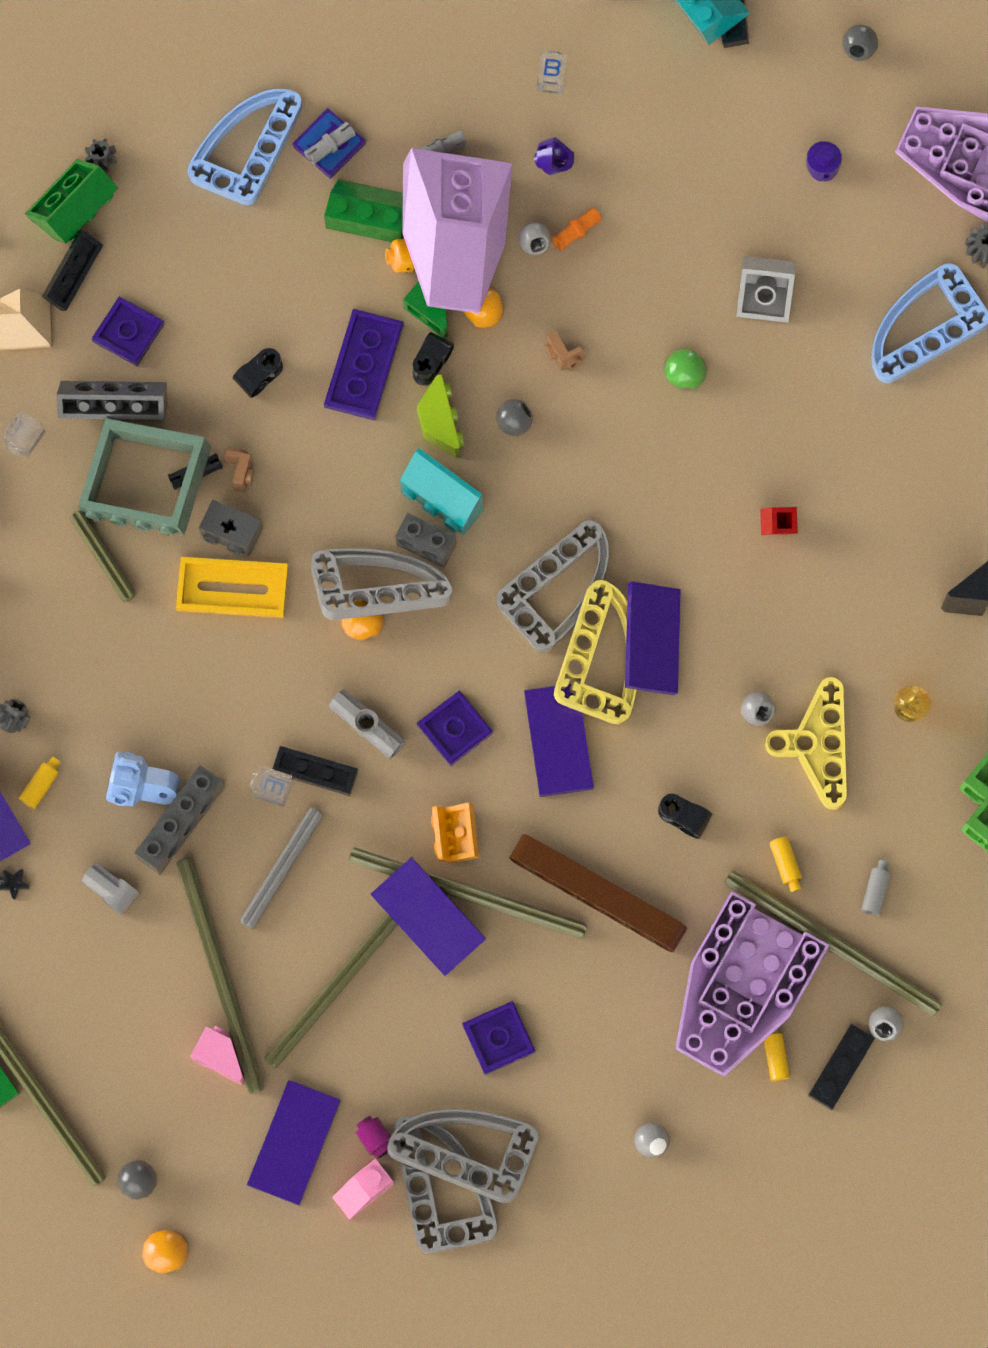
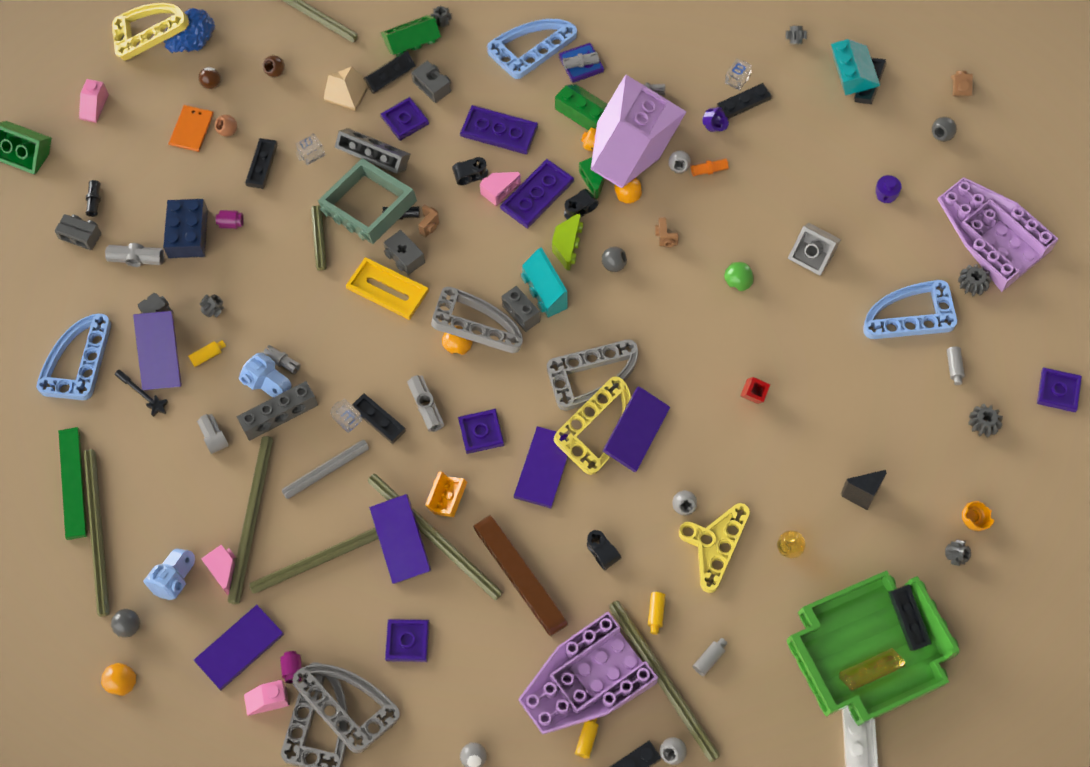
camera: 25 degrees right, 10 degrees down
(145, 747) = (282, 359): none -> light grey pin
(148, 271) = (431, 82): none -> dark grey brick
(159, 1100) = (167, 579): none -> light blue piece
(266, 292) = (499, 129): none -> dark purple tile
(309, 377) = (499, 186): none -> bright pink slope
(577, 108) = (745, 100): none -> black plate

